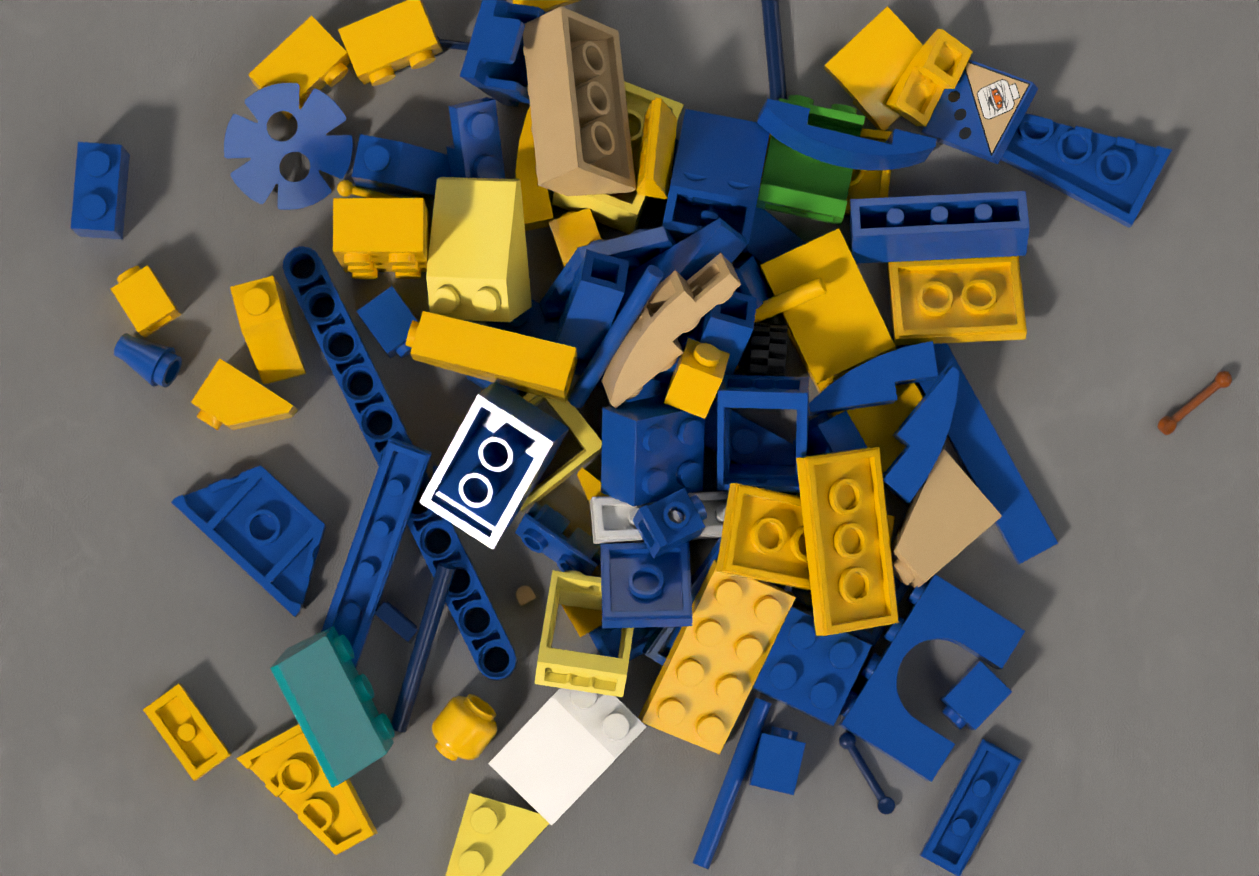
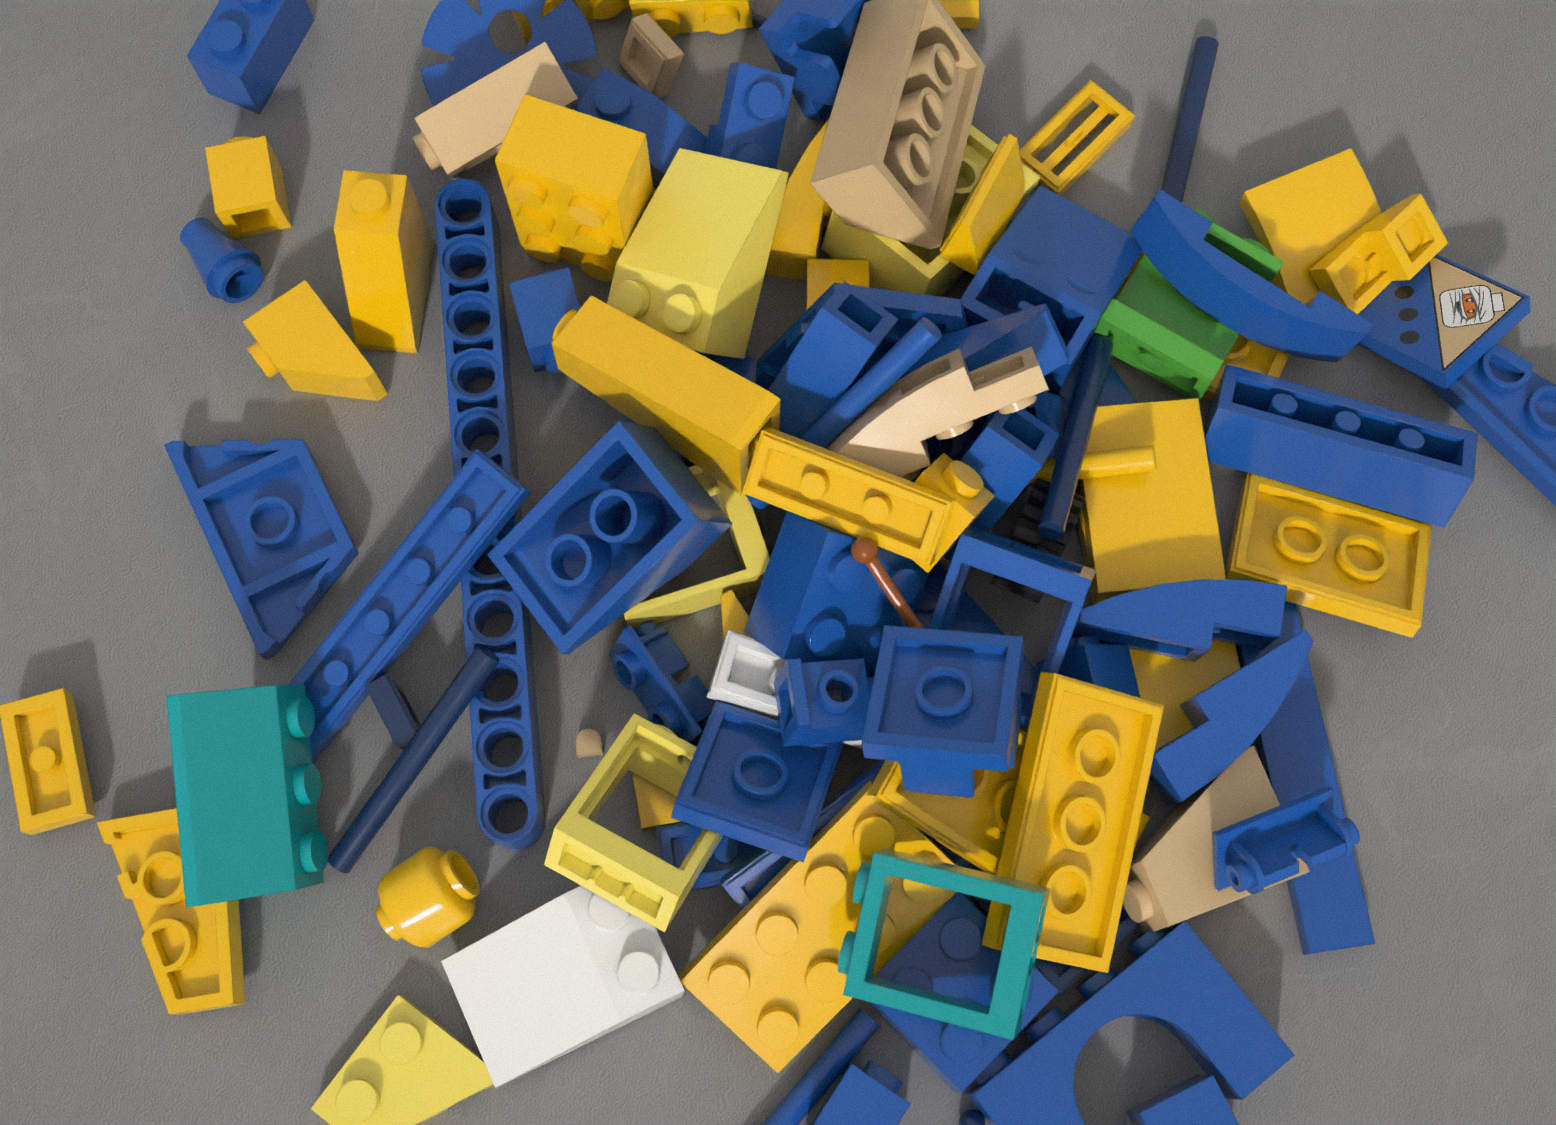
camera: 20 degrees right, 10 degrees down
(300, 196) = (476, 119): none -> tan window
(383, 105) = (650, 56): none -> tan tile
(639, 391) = (848, 495): none -> yellow tile
(681, 92) = (1107, 107): none -> yellow tile
(718, 463) = (865, 551): none -> dark orange hinge
(745, 503) = (945, 706): none -> blue panel
(768, 287) = (1075, 439): none -> dark blue bar
(838, 636) = (1017, 957): none -> teal window
(966, 514) = (1267, 845): none -> blue hinge

